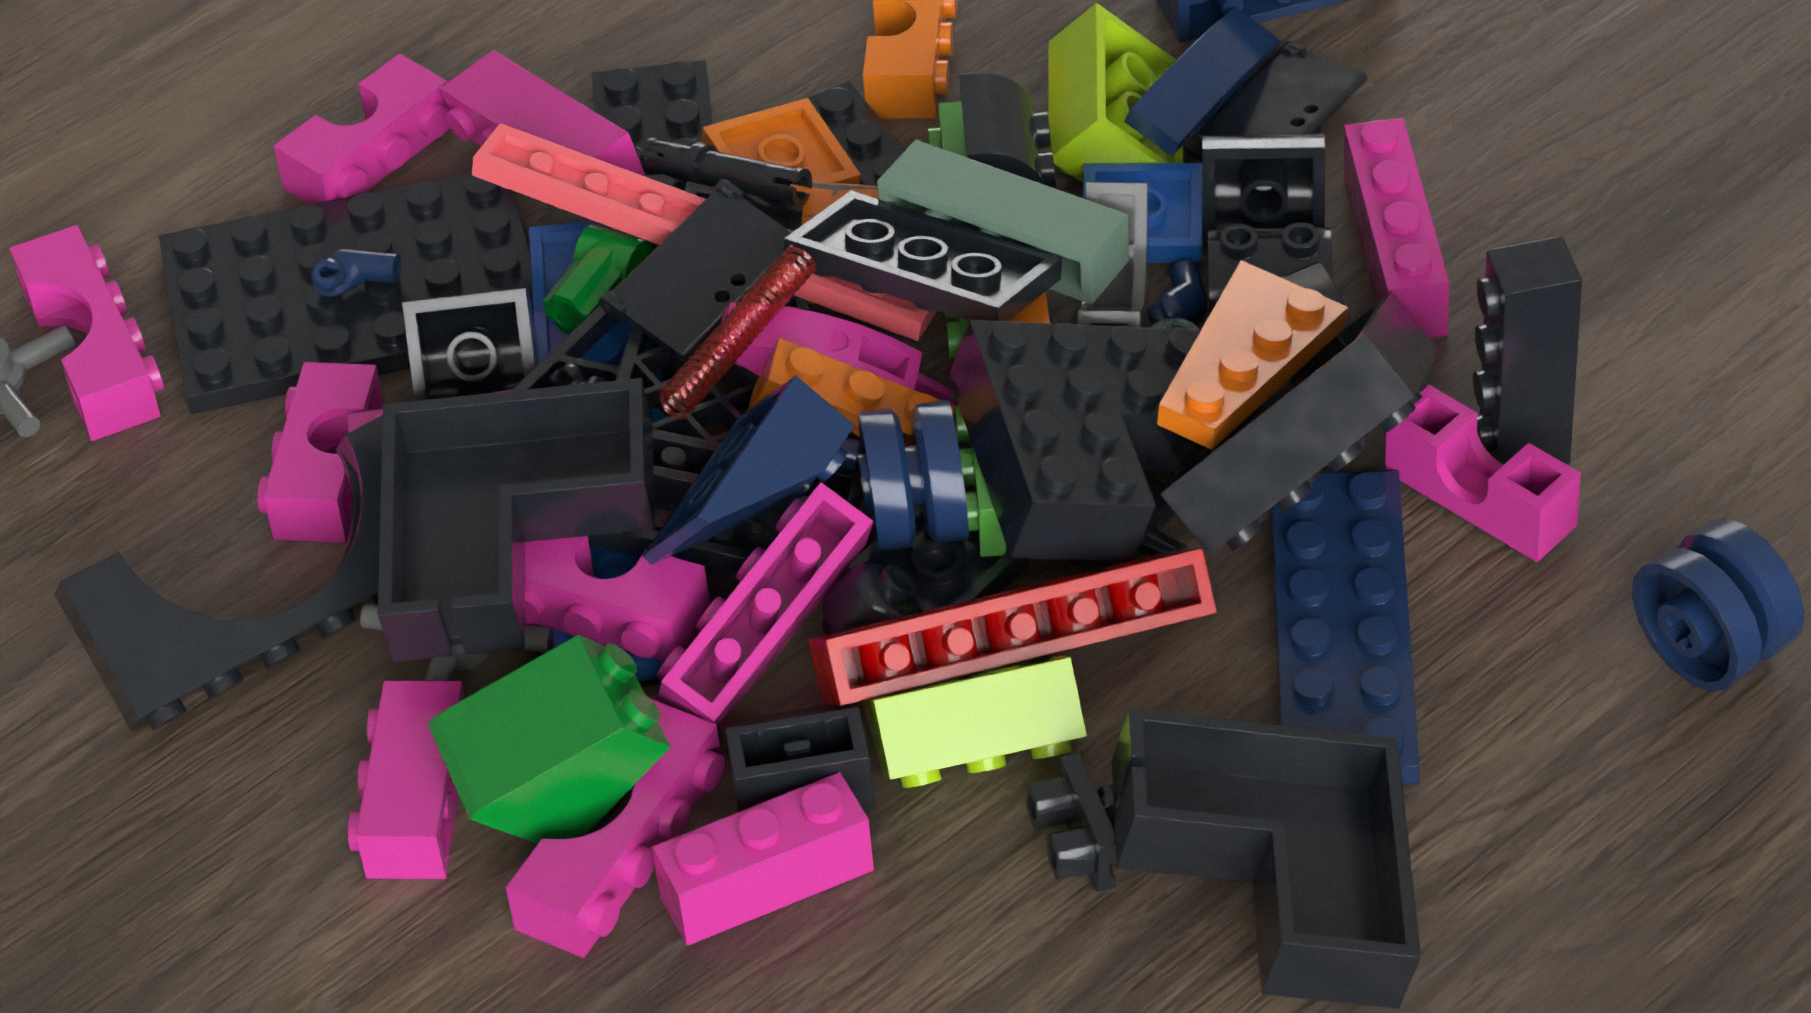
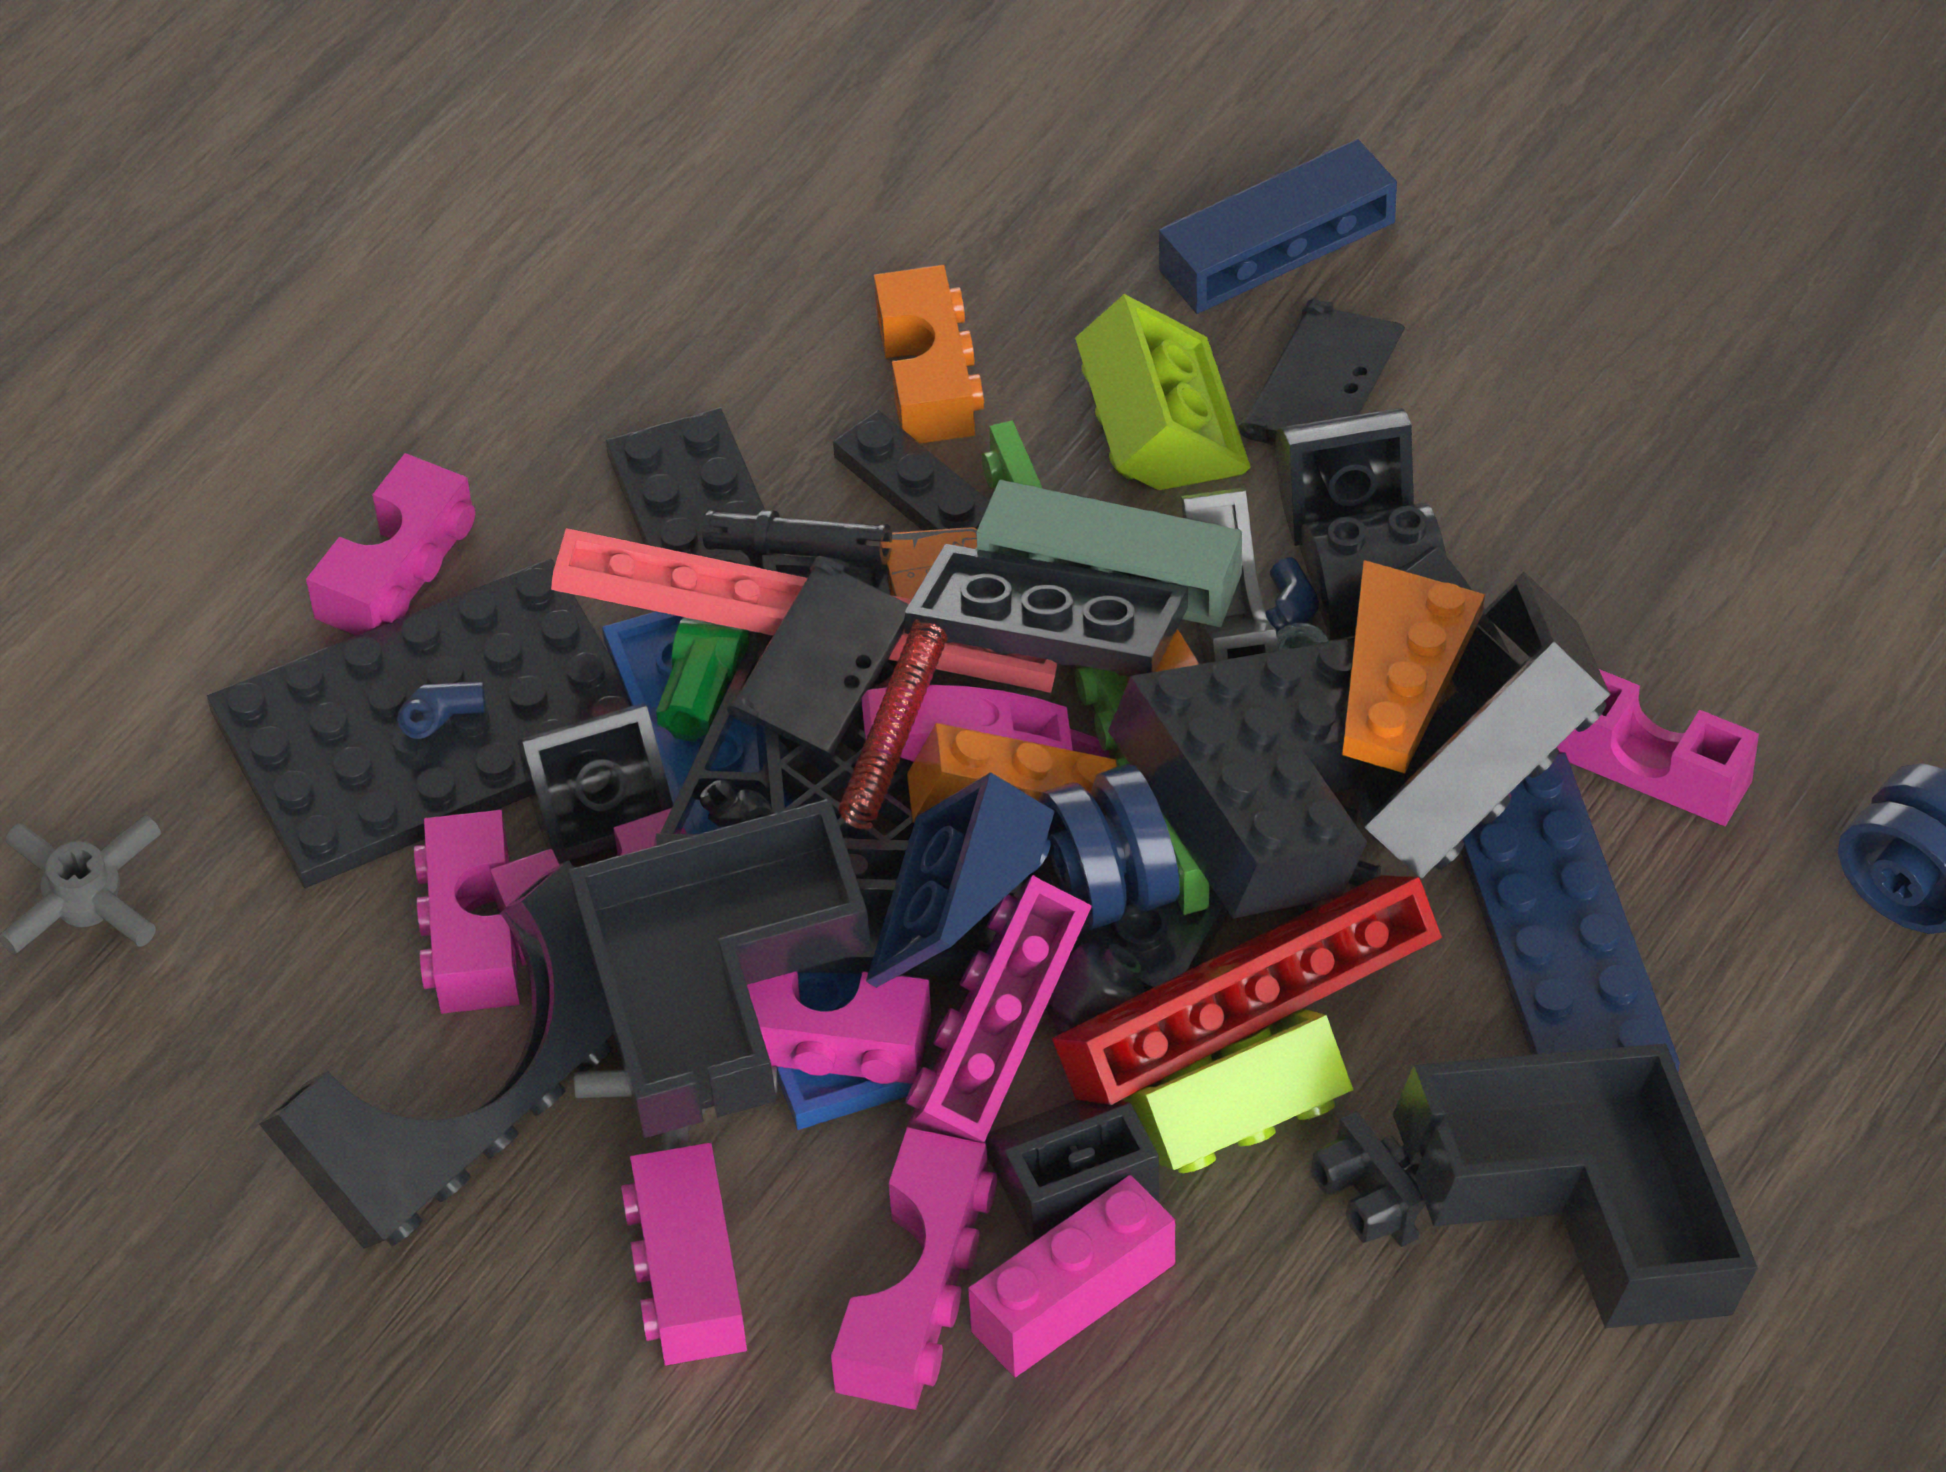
camera: 15 degrees left, 5 degrees up
(105, 373) = (128, 769): dark pink arch -> none
(505, 93) = (539, 495): dark pink brick -> none
(552, 742) = (834, 1194): green slope -> none
(788, 137) = (841, 488): orange plate -> none
(1005, 128) = (1072, 450): black brick -> none
(1173, 204) = (1256, 472): blue plate -> none
(1202, 81) = (1245, 359): dark blue slope -> none
(1395, 221) = (1485, 487): dark pink brick -> none
(1528, 349) = (1684, 617): black brick -> none

